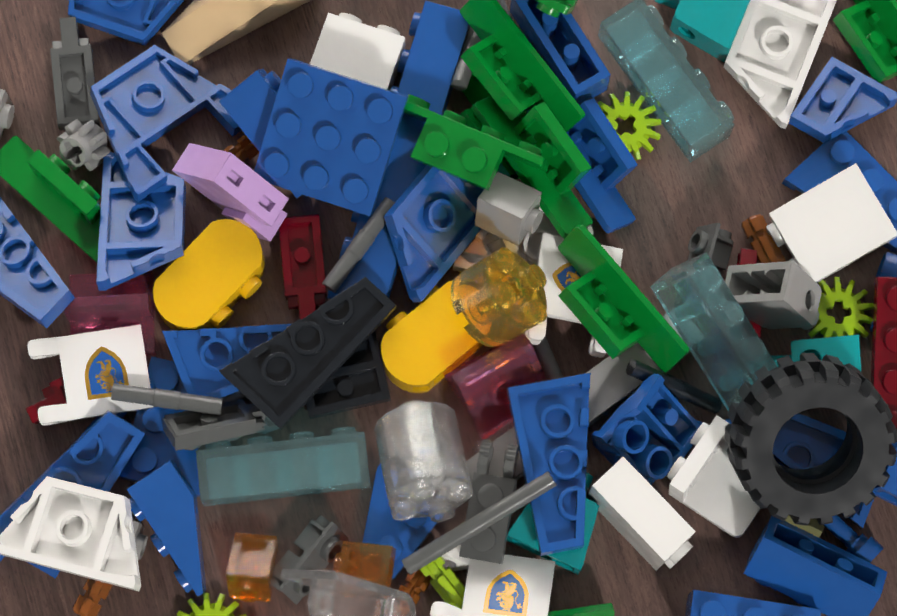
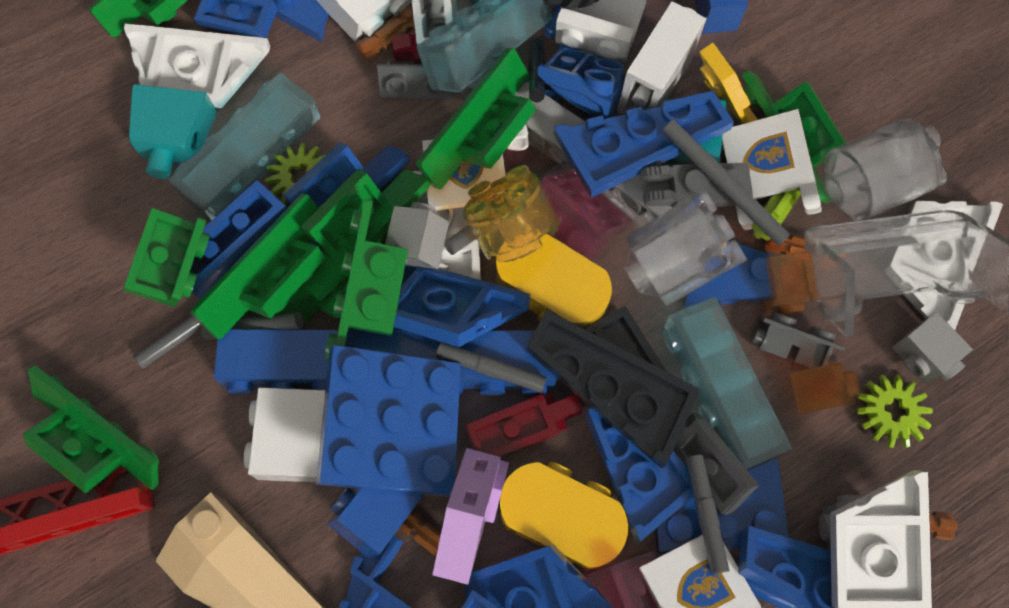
camera: 105 degrees left, 5 degrees down
(173, 514) = (810, 479): blue slope -> none
(599, 579) = (725, 83): none -> yellow wing

